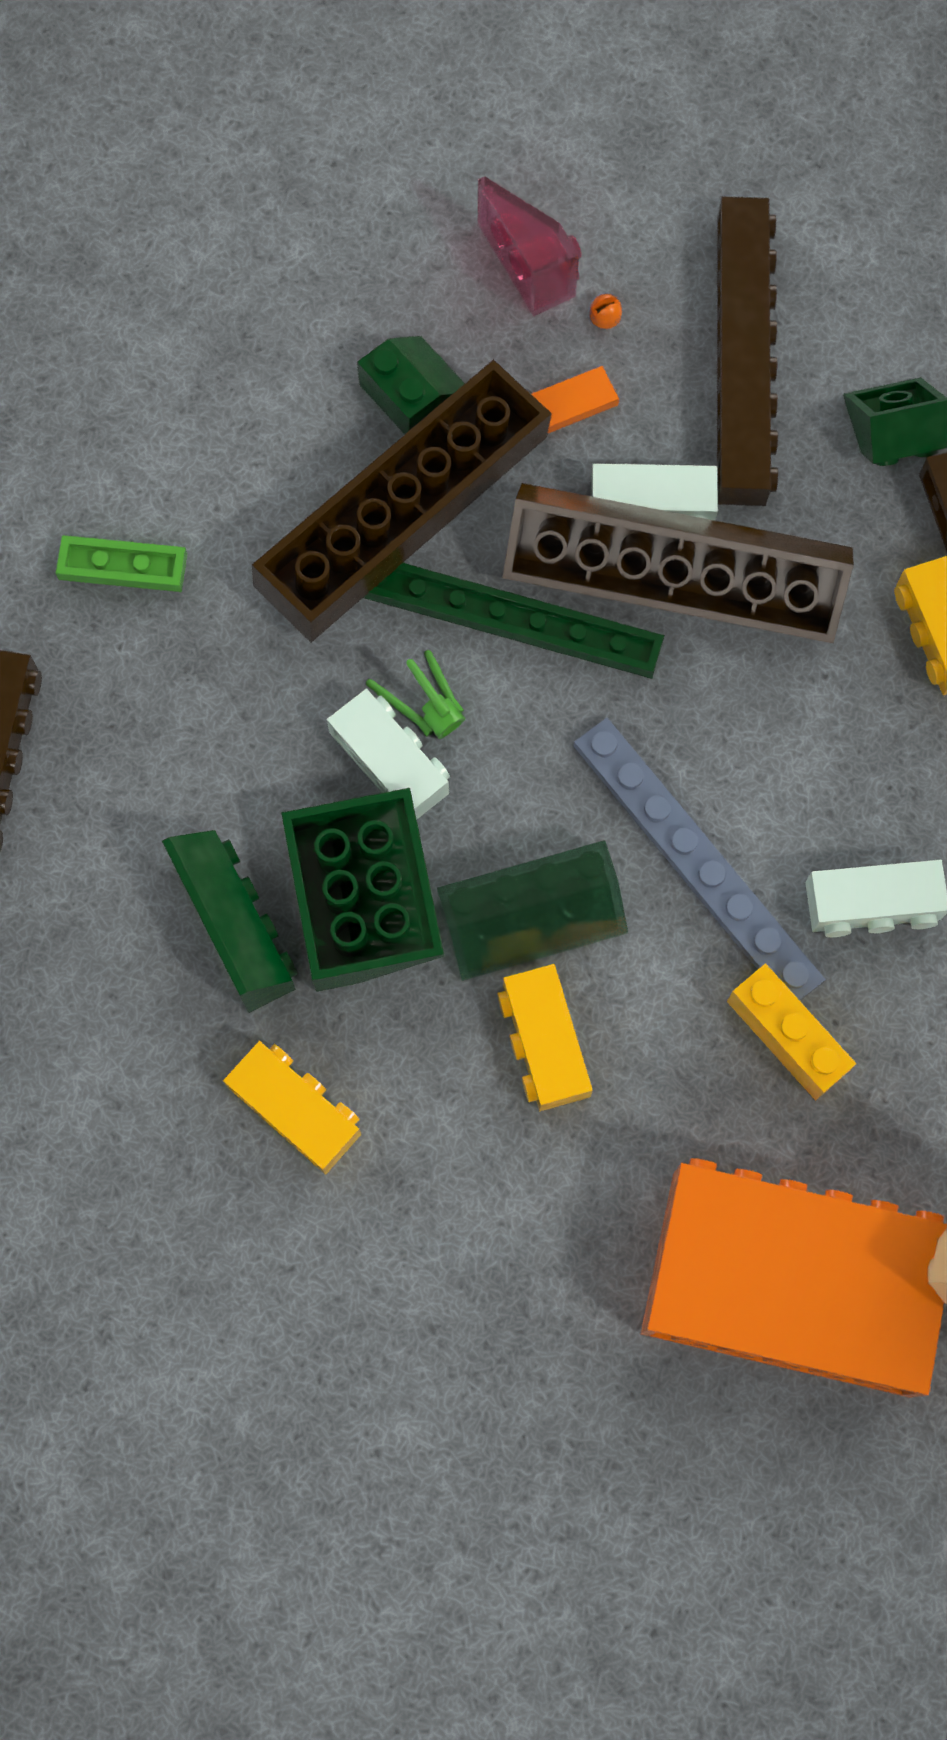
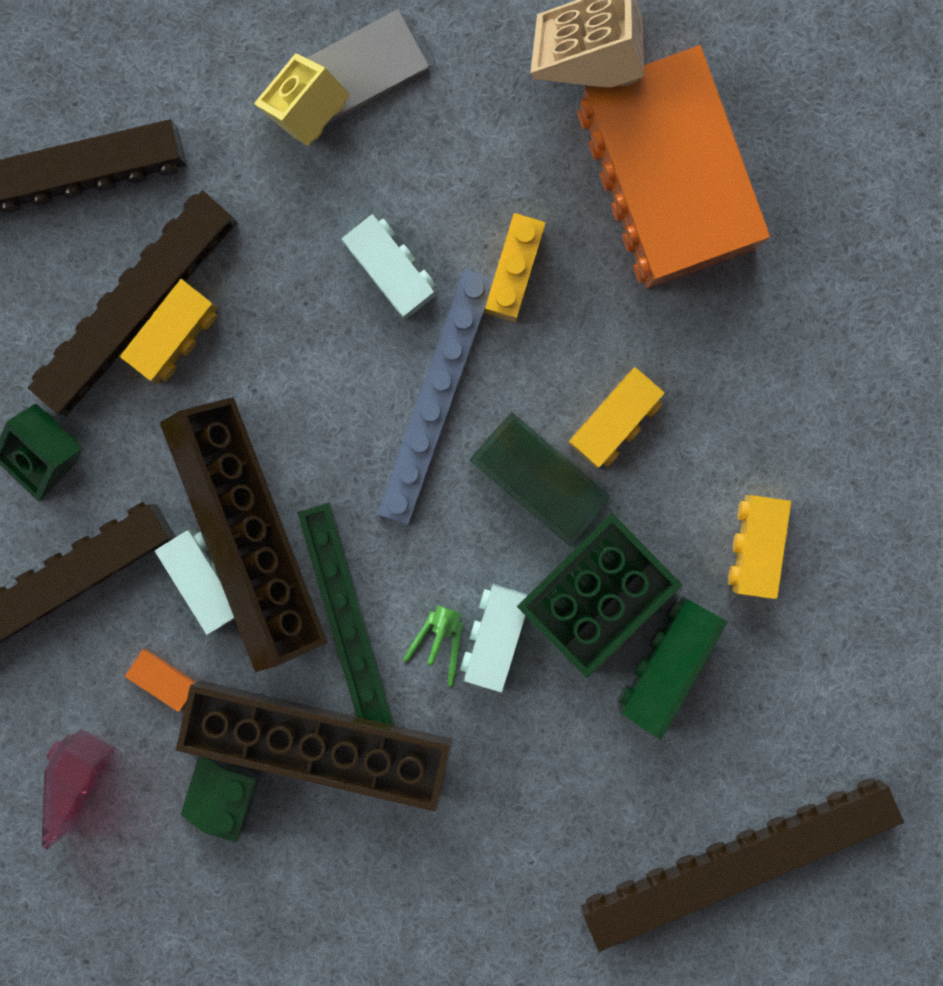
camera: 120 degrees left, 15 degrees up
(121, 563) = (476, 901): bright green plate -> none
(608, 315) = (83, 696): orange hinge -> none

